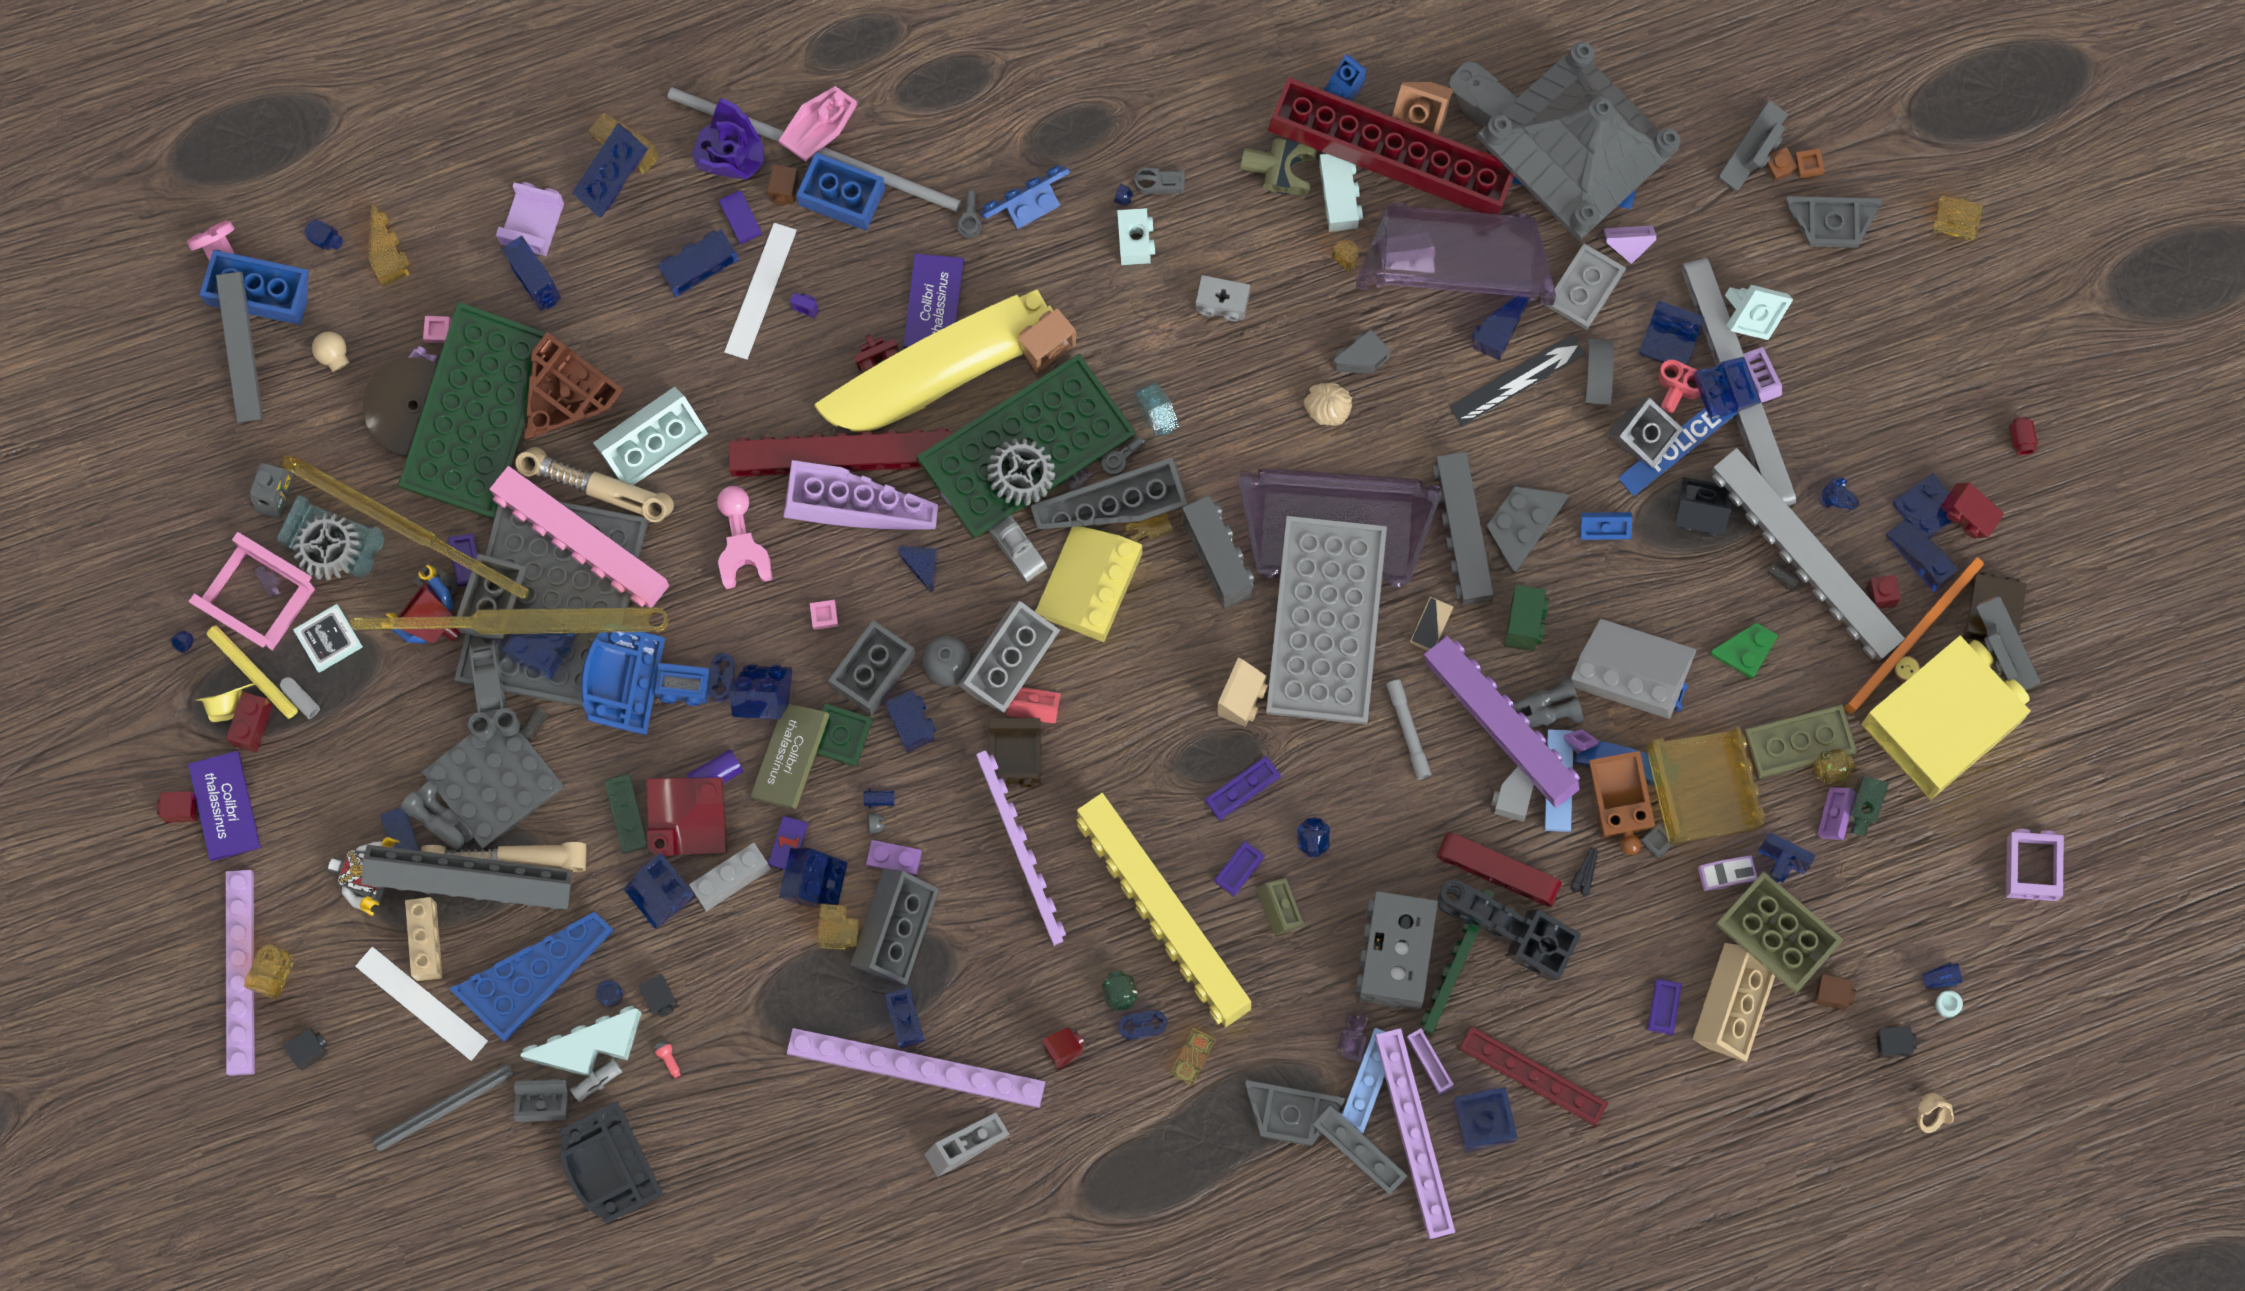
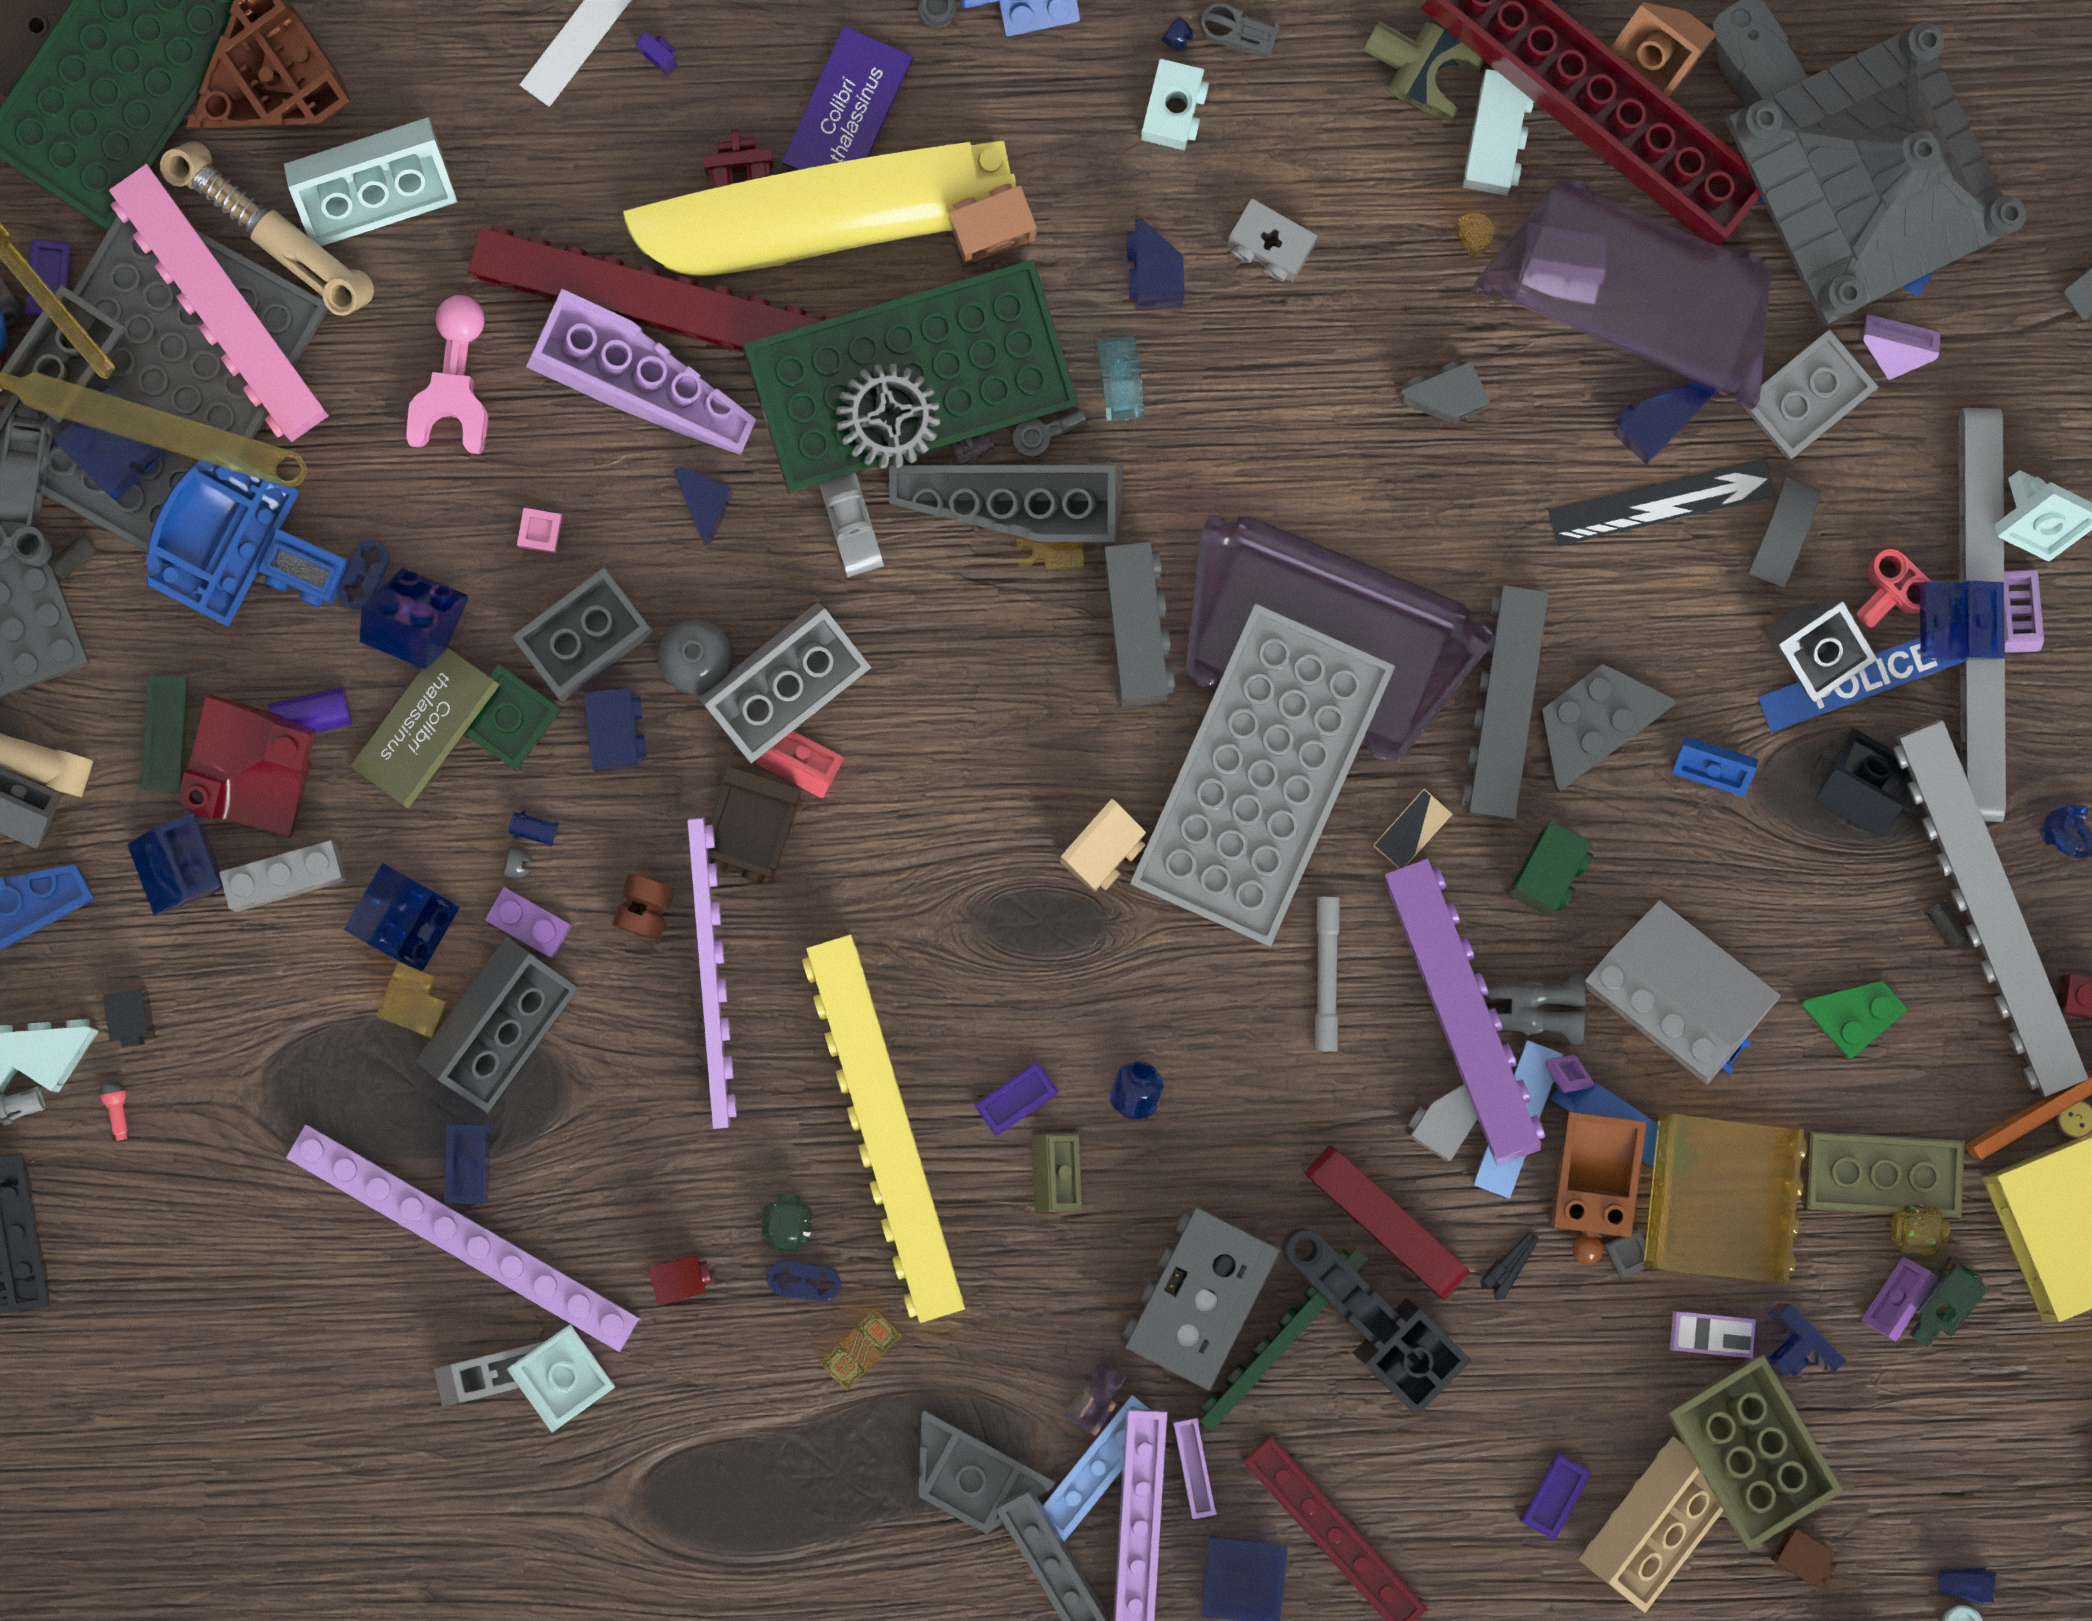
camera: 10 degrees right, 10 degrees up
(609, 993) = (61, 988): clear blue tile -> none
(789, 836) = (386, 845): dark purple tile -> none
(964, 814) = (644, 892): none -> copper wheel
(1007, 1134) = (561, 1378): none -> light aqua tile
(1089, 581) = (938, 605): light yellow slope -> none
(1157, 336) = (1158, 269): none -> clear blue slope
(1242, 788) = (1060, 982): dark purple tile -> none
(1328, 404) = (1373, 451): tan hair -> none
(1671, 334) = (1908, 510): clear blue bracket -> none

